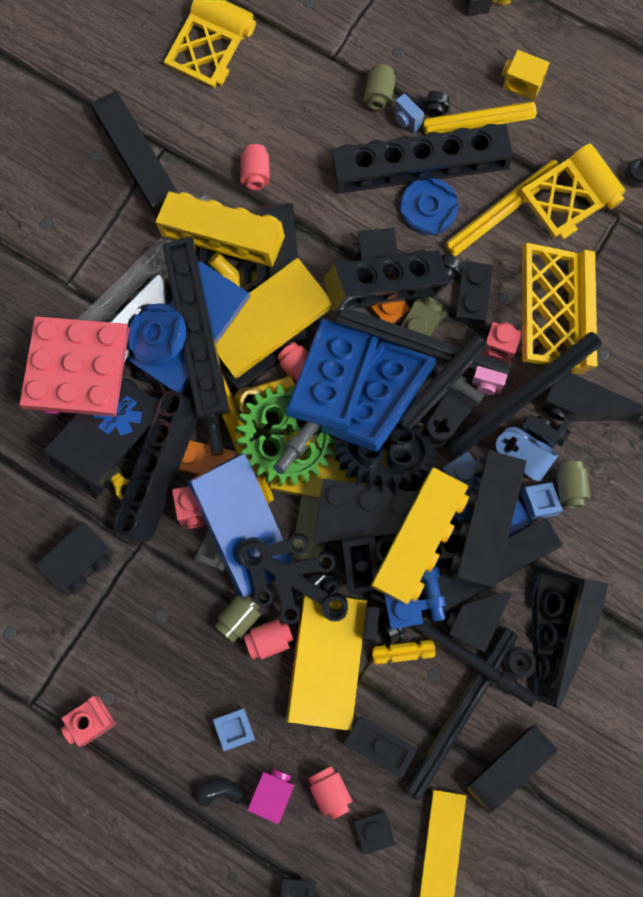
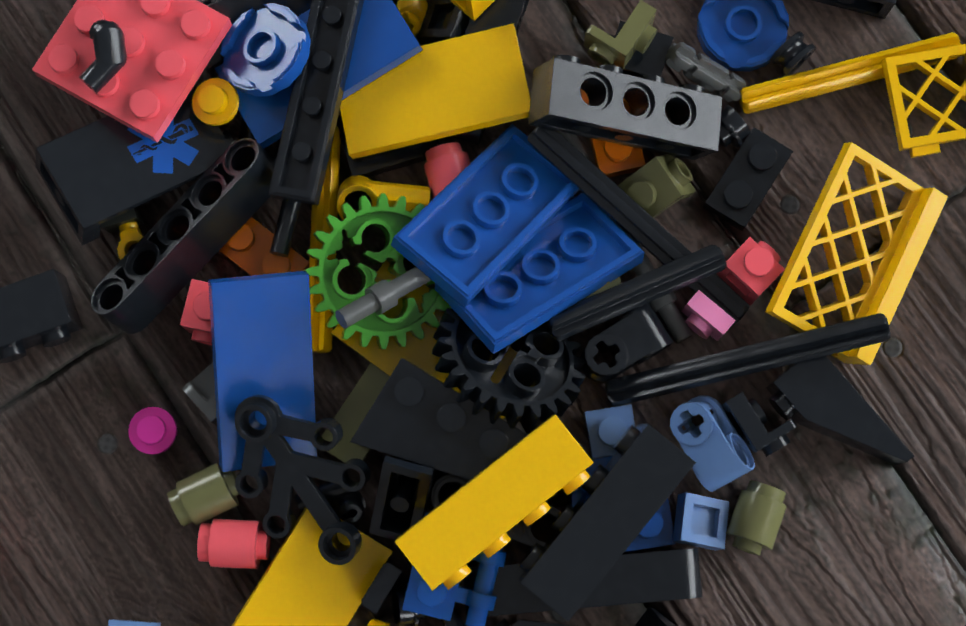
camera: 25 degrees right, 5 degrees up
(66, 374) = (109, 53): none -> black arm
(139, 378) = (215, 102): none -> yellow plate
(186, 594) = (152, 430): none -> dark pink plate
(358, 248) = (633, 36): none -> olive bracket
(420, 240) = (704, 71): none -> dark grey axle
(466, 209) = (793, 53): none -> black bush

